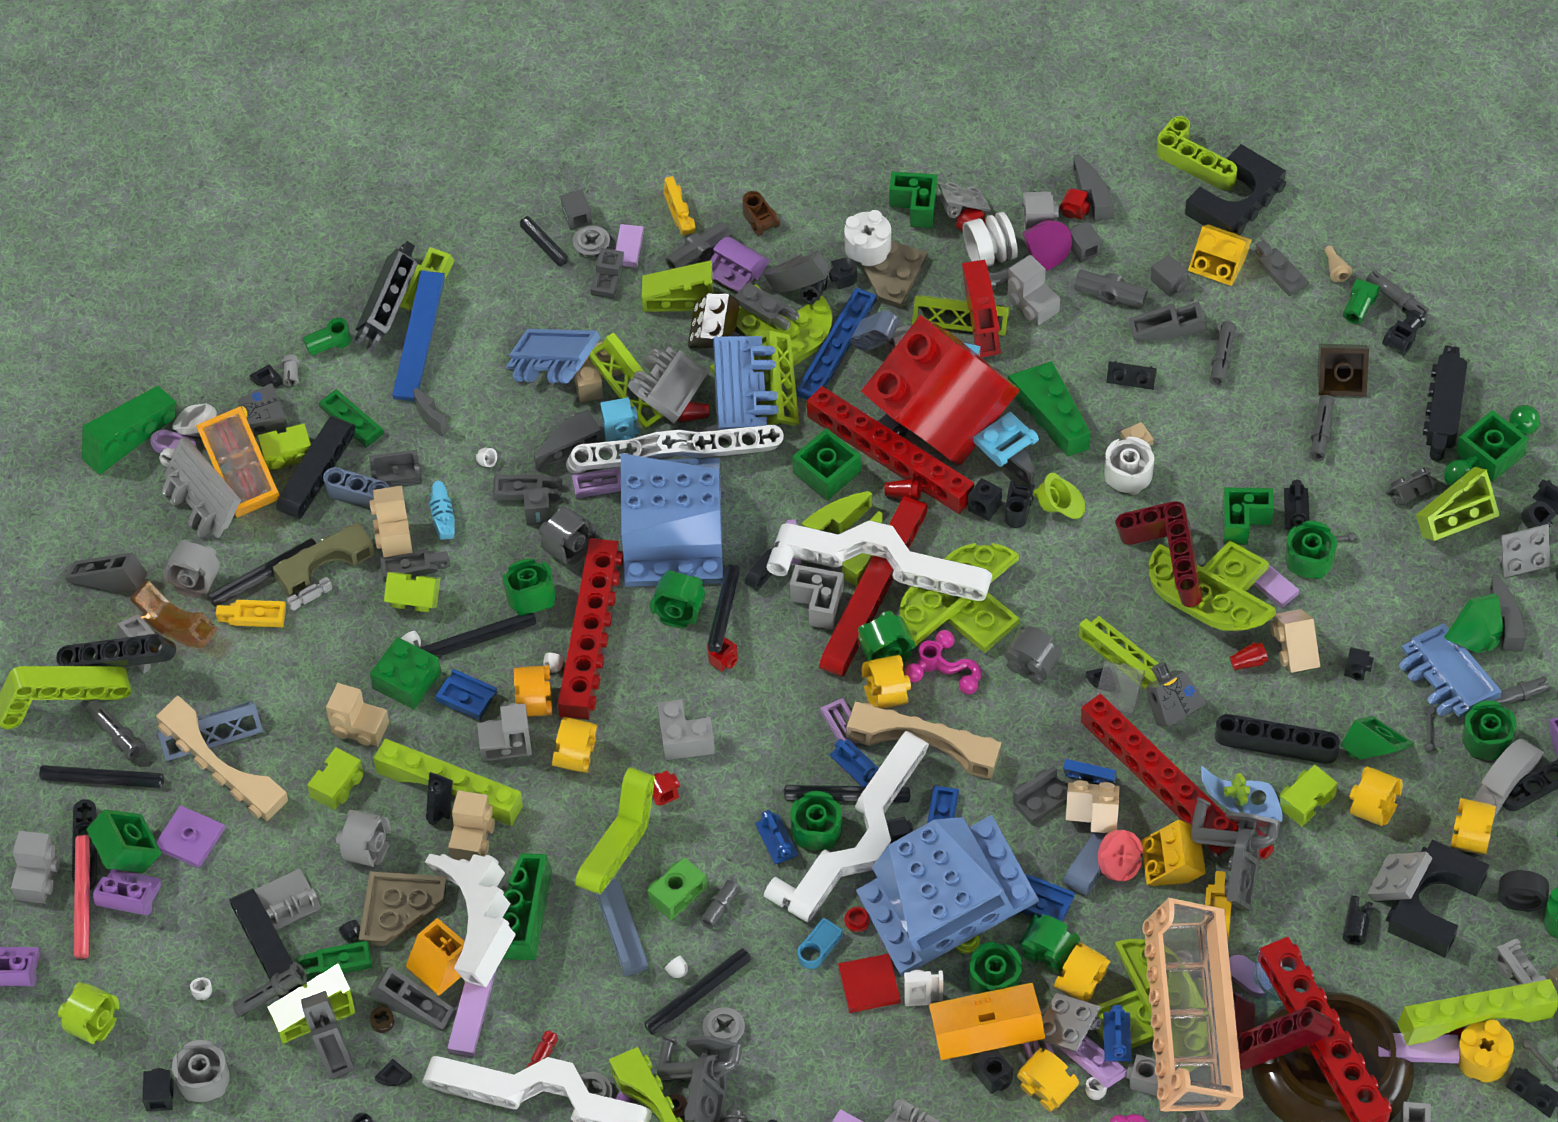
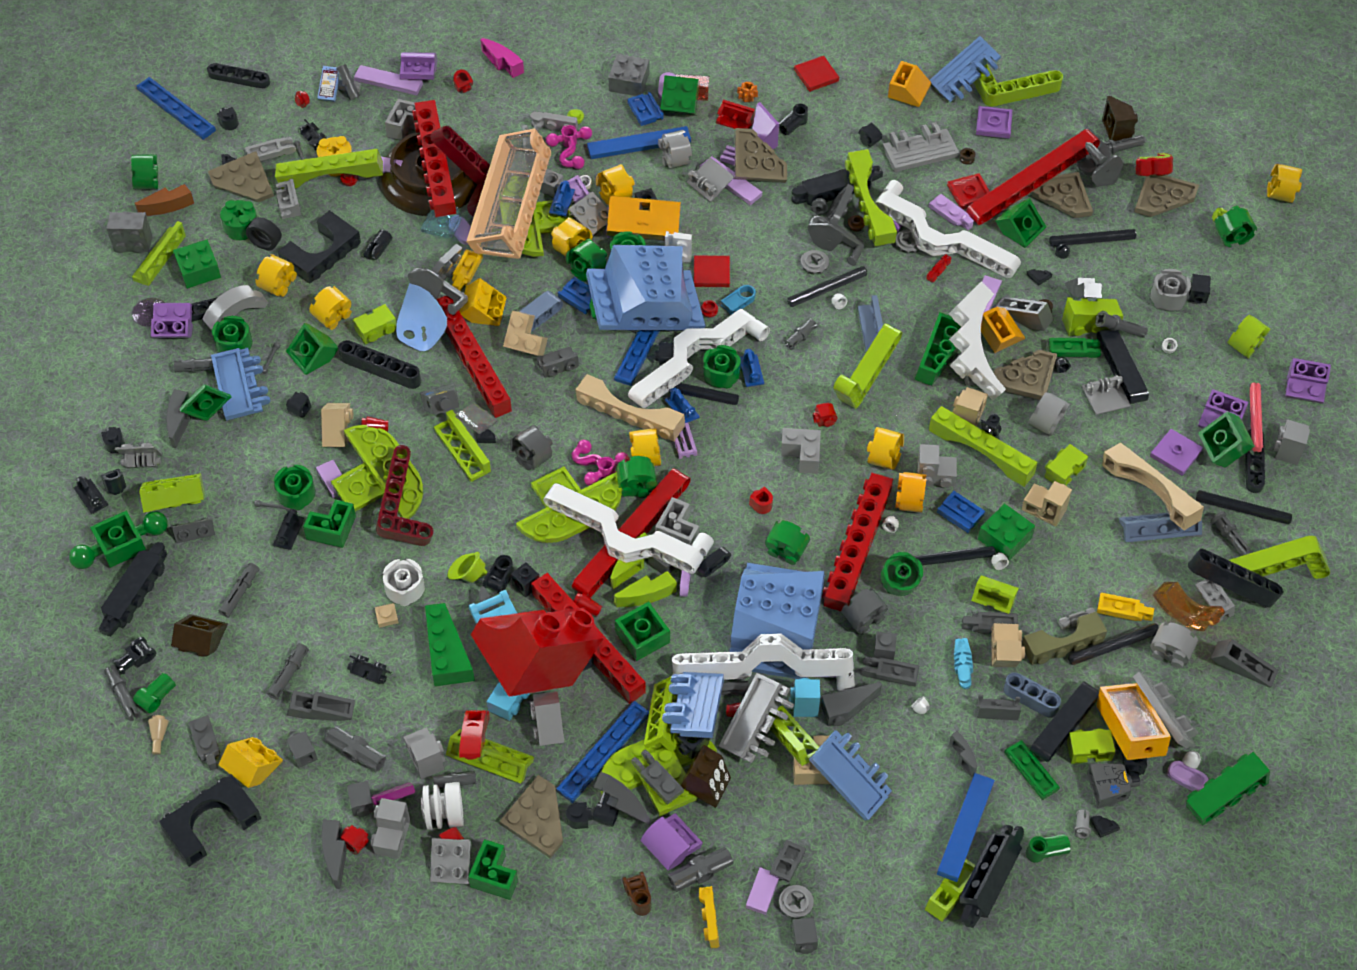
camera: 170 degrees left, 0 degrees up
(192, 416) = (1169, 787): white hat -> none
(543, 241) = (839, 912): black axle -> none
(673, 901) = (828, 346): bright green brick -> none
(677, 288) = (727, 823): lime wedge -> none
(723, 608) = (752, 529): black axle -> none
(867, 237) = (553, 816): white brick -> none
(875, 330) = (570, 731): sand blue beam -> none
(1079, 771) = (519, 362): blue plate -> none
(1120, 855) = (519, 303): coral tile -> none
(1179, 151) = (227, 863): lime beam -> none
(1238, 789) = (422, 333): lime plant -> none
(1399, 876) = (339, 258): light grey plate -> none

